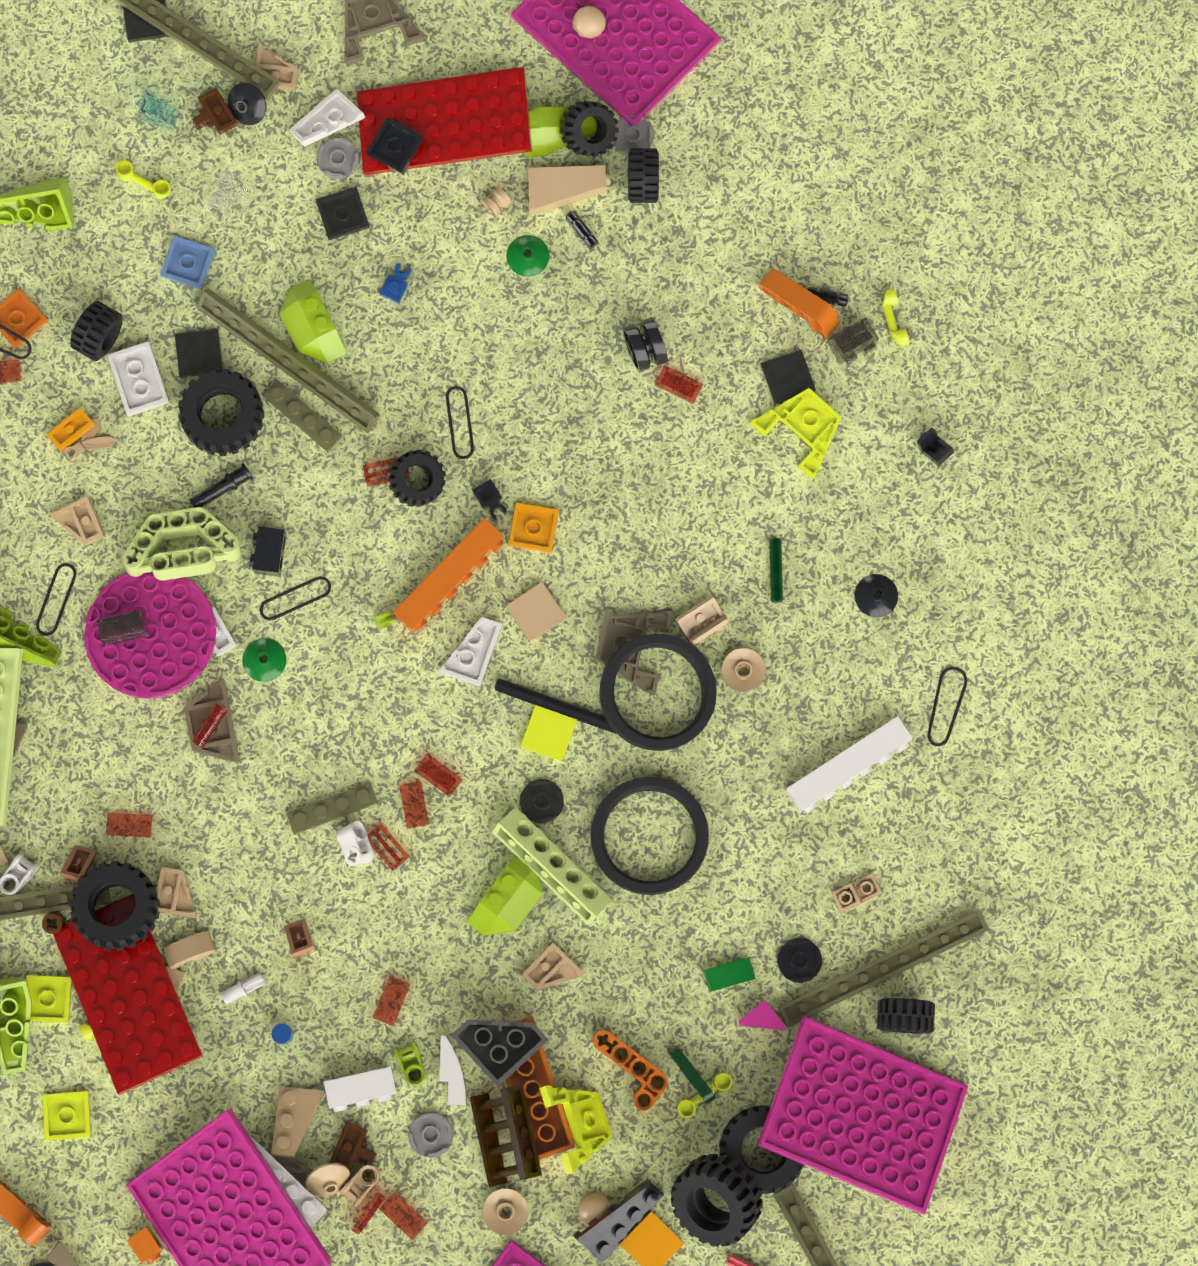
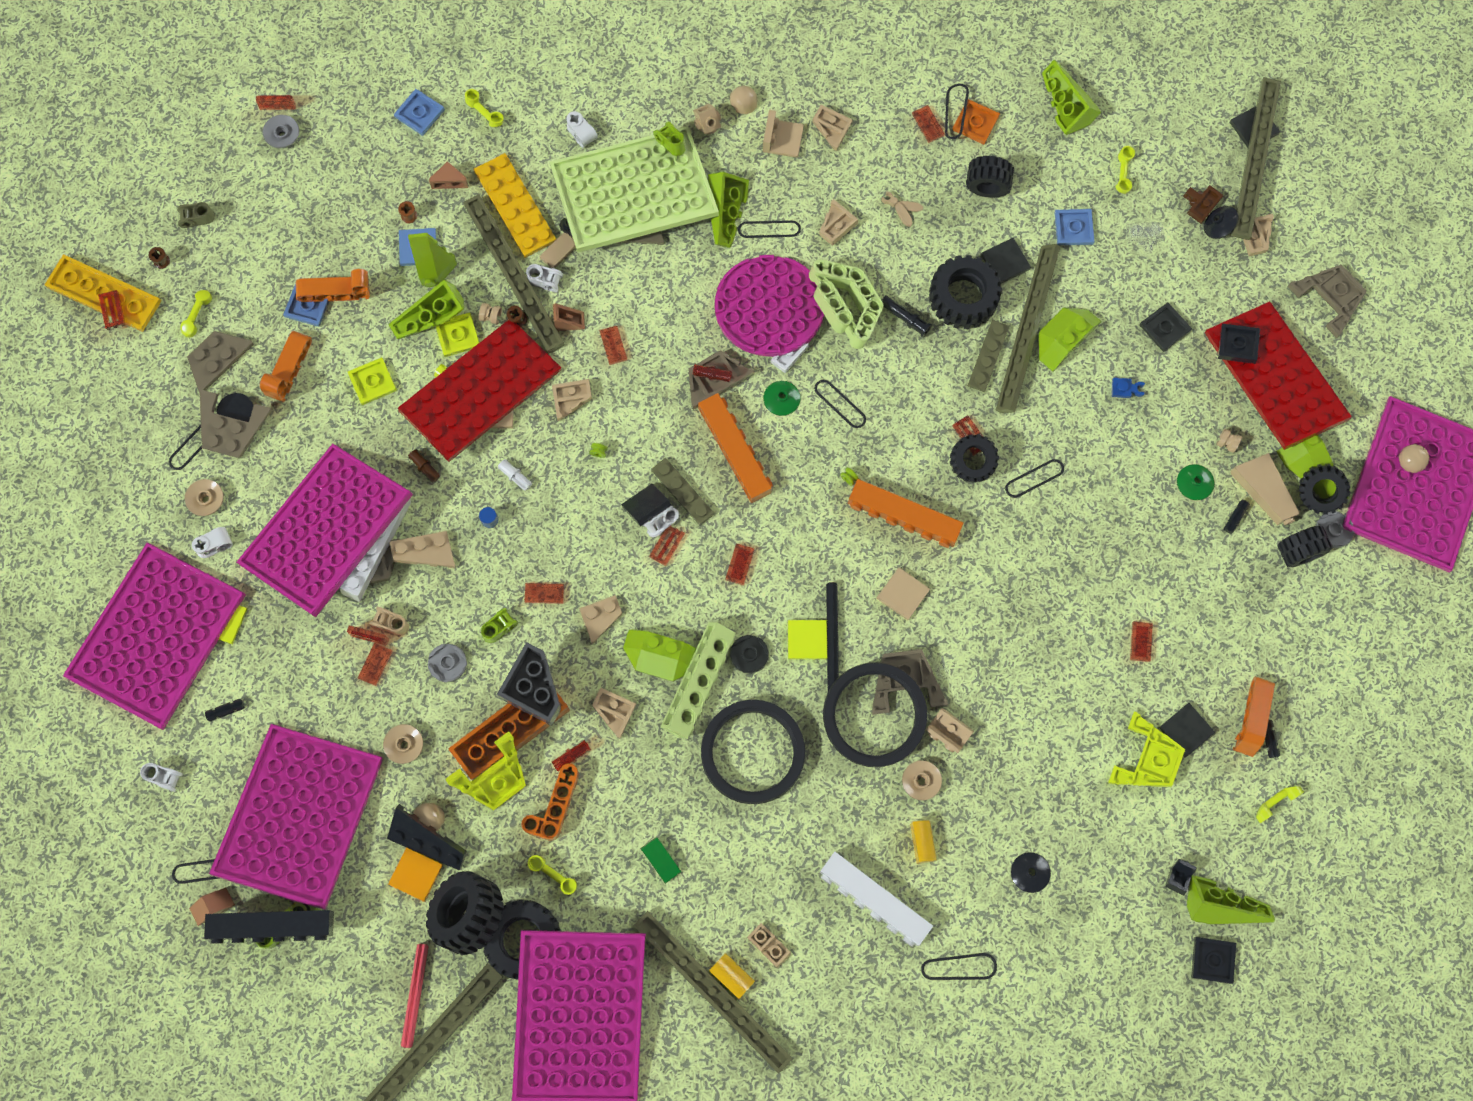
camera: 70 degrees right, 5 degrees down
(34, 956) = (489, 313): none -> tan wheel
(70, 429) = (905, 190): light orange plate -> none
(94, 885) = (548, 330): black tyre -> none
(123, 628) = (764, 281): clear smoke brick -> none
(138, 378) = (966, 224): white plate -> none
(145, 1245) = (289, 474): orange brick -> none
(157, 112) = (1183, 160): clear light blue slope -> none
(189, 948) = (531, 422): tan slope -> none
(193, 1087) = (424, 465): none -> reddish brown axle
(249, 884) = (598, 450): none -> lime bush
(269, 551) = (868, 368): black brick -> none
(299, 939) = (568, 504): nougat slope -> none
(304, 732) = (734, 447): none -> orange brick
(326, 118) = (1237, 286): white wing -> none
(327, 1179) = (383, 592): tan dish -> none
(334, 853) = (646, 504): none -> black tile
(340, 164) = (1208, 313): light grey tile -> none
(352, 1147) = (415, 604): reddish brown hinge -> none
(359, 1089) = (463, 592): white brick -> none
(414, 805) = (708, 554): clear red tile -> none
(440, 948) = (600, 616): none -> tan wing
(452, 1073) = (502, 661): white slope -> none
(474, 653) = (848, 556): white wing -> none
(488, 497) = (983, 521): black plate -> none
(520, 1132) = (467, 729): dark brown fence -> none
(533, 527) = (972, 567): light orange tile -> none
(583, 1032) = (571, 755): none -> clear red pin
(644, 345) = (1160, 596): black wheel -> none
(692, 1075) = (565, 857): dark green beam -> none
(762, 1017) = (634, 900): dark pink slope -> none
(776, 579) = (1017, 778): dark green axle -> none
(796, 966) = (694, 916): black tile -> none
(807, 693) = (923, 841): none -> yellow brick
(853, 341) = (1242, 774): clear smoke brick -> none
(875, 942) = (732, 976): none -> yellow brick
(906, 1015) = (676, 1024): black tyre -> none
(975, 423) = (1216, 906): none -> lime wedge
(1027, 449) = (1213, 960): none -> black tile

